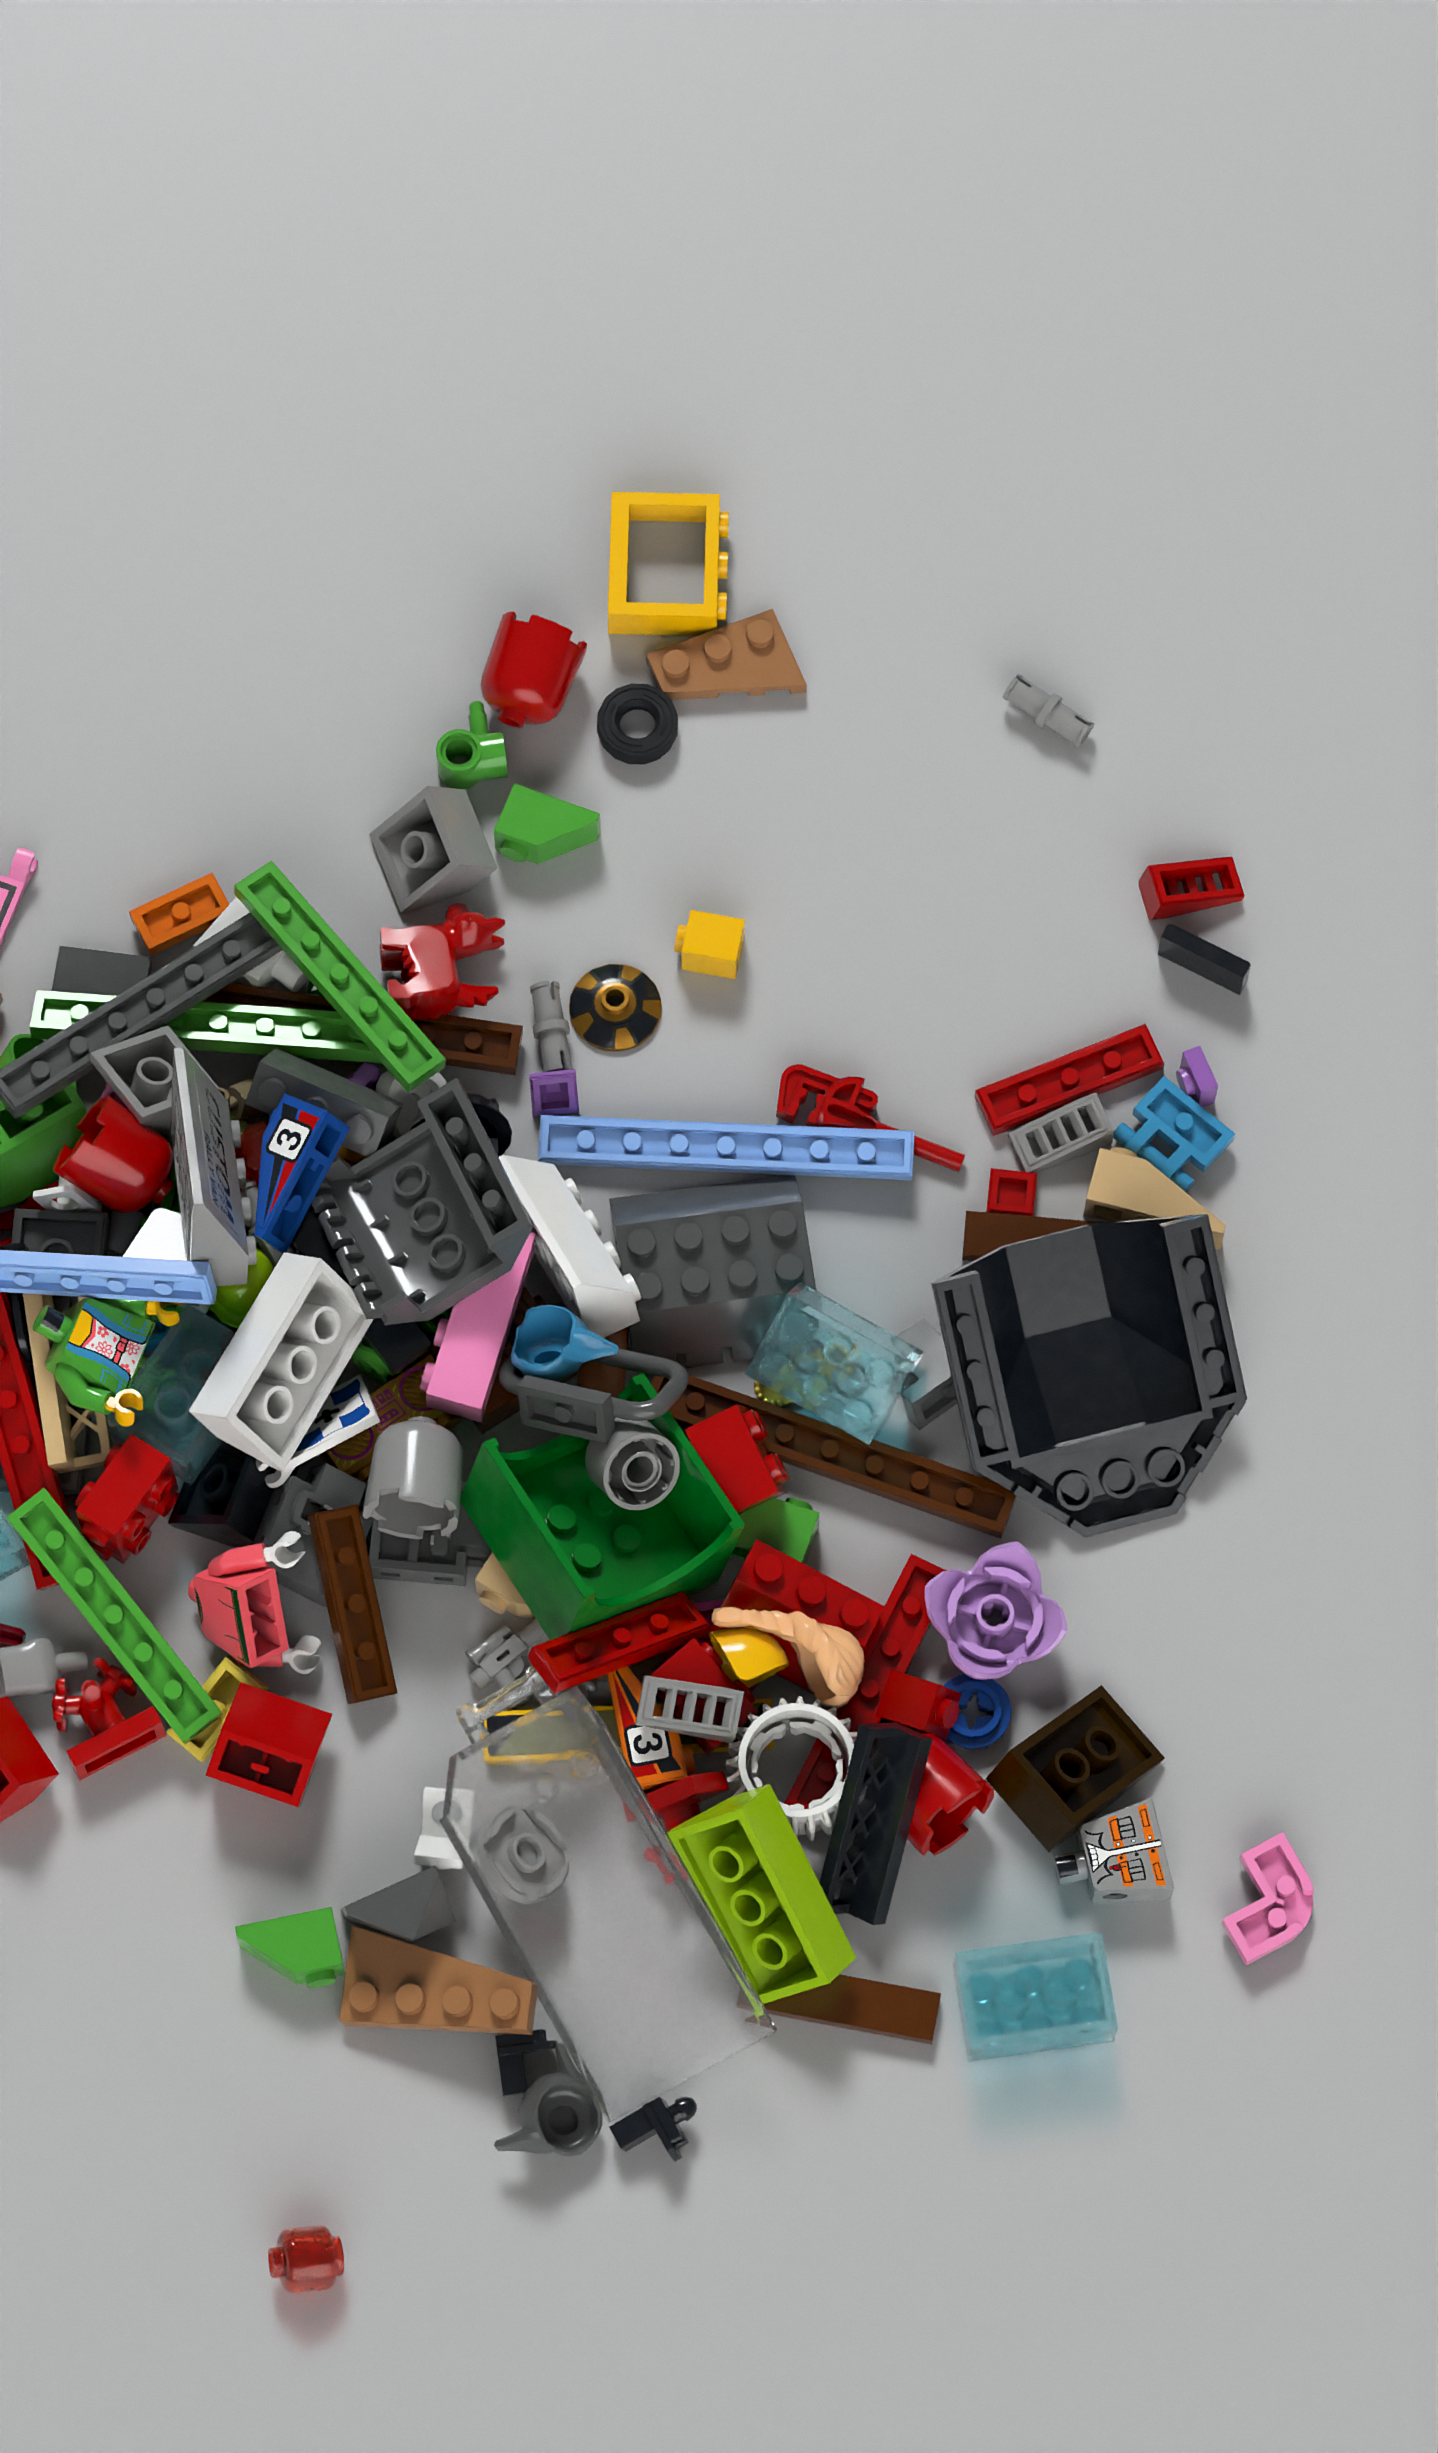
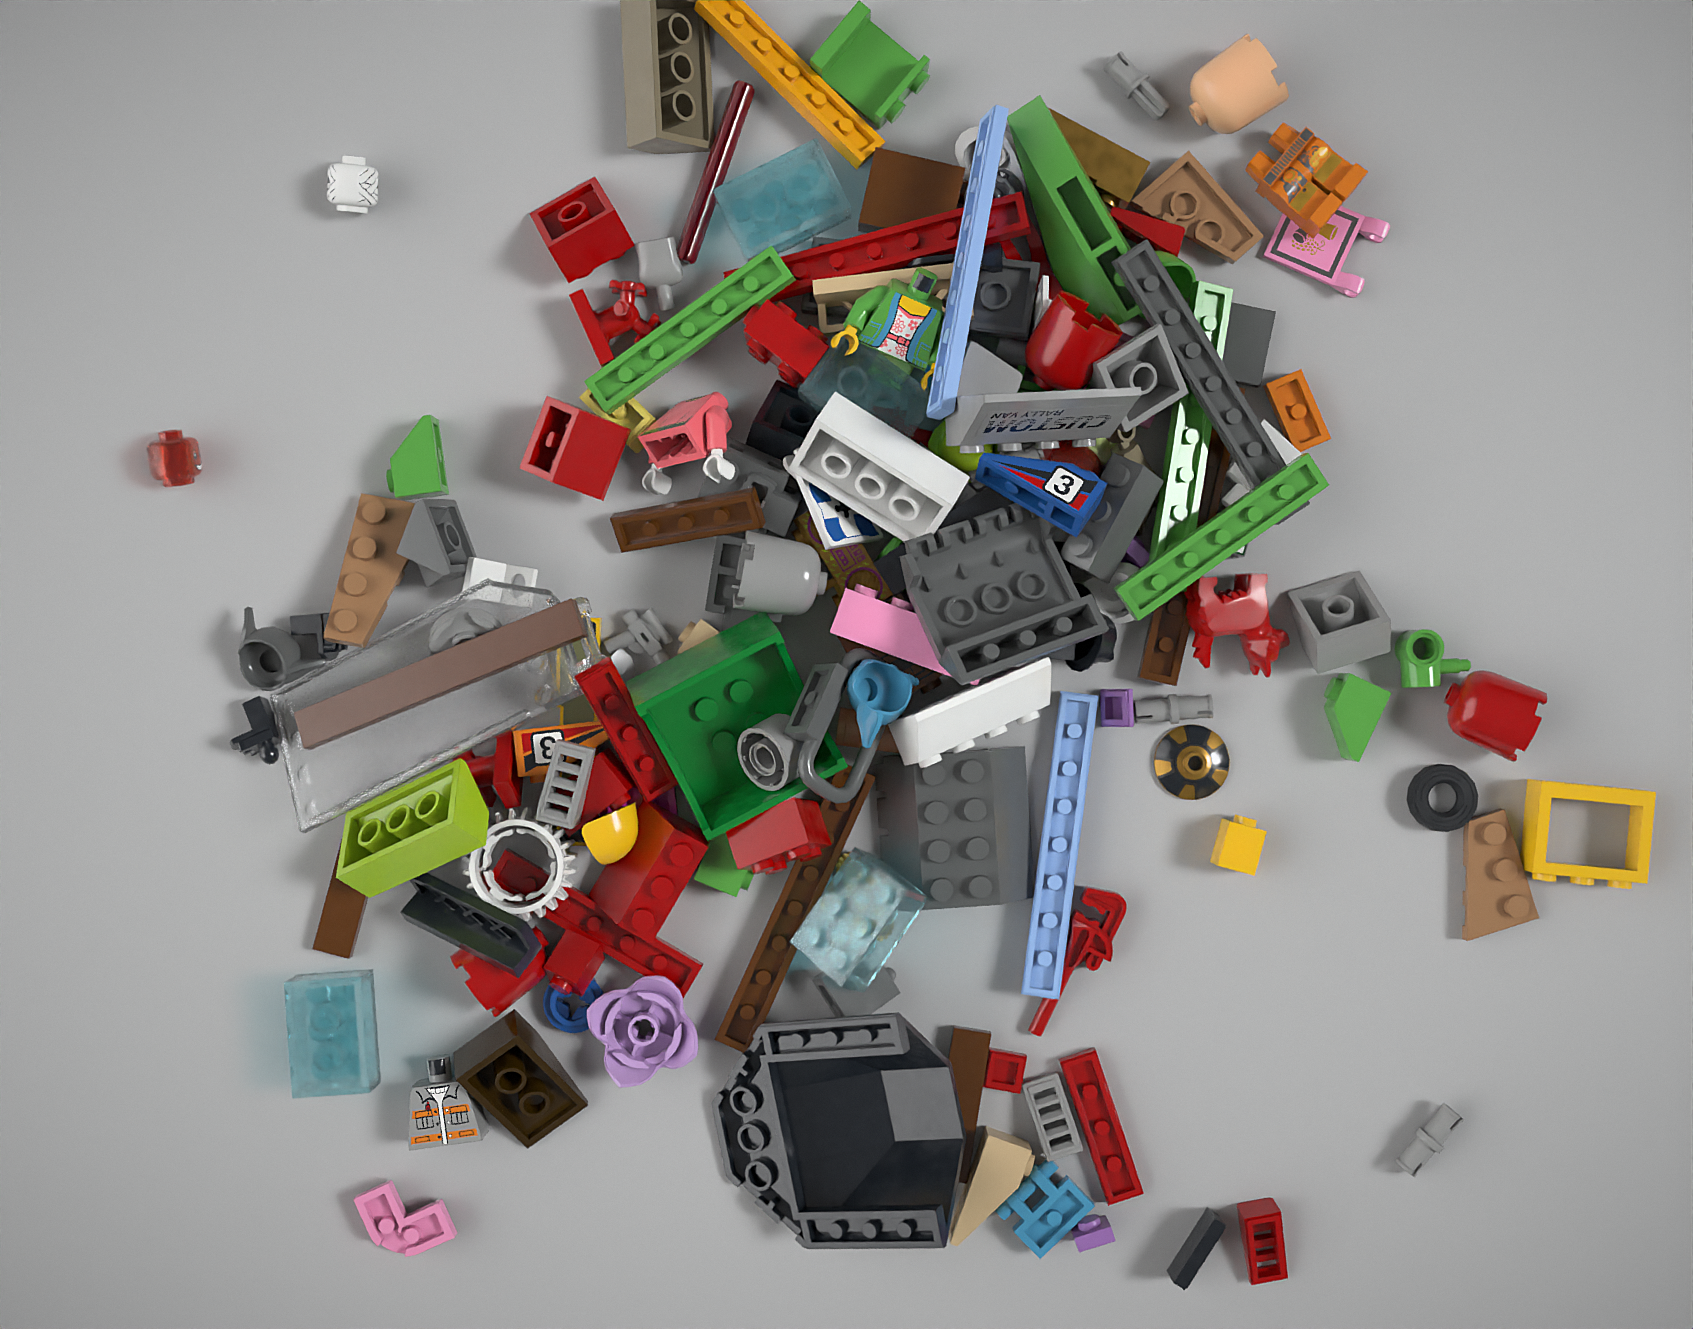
camera: 90 degrees right, 20 degrees up
(565, 1880) = (440, 674): none -> reddish brown tile
(825, 1653) = (607, 896): light nougat hair -> none

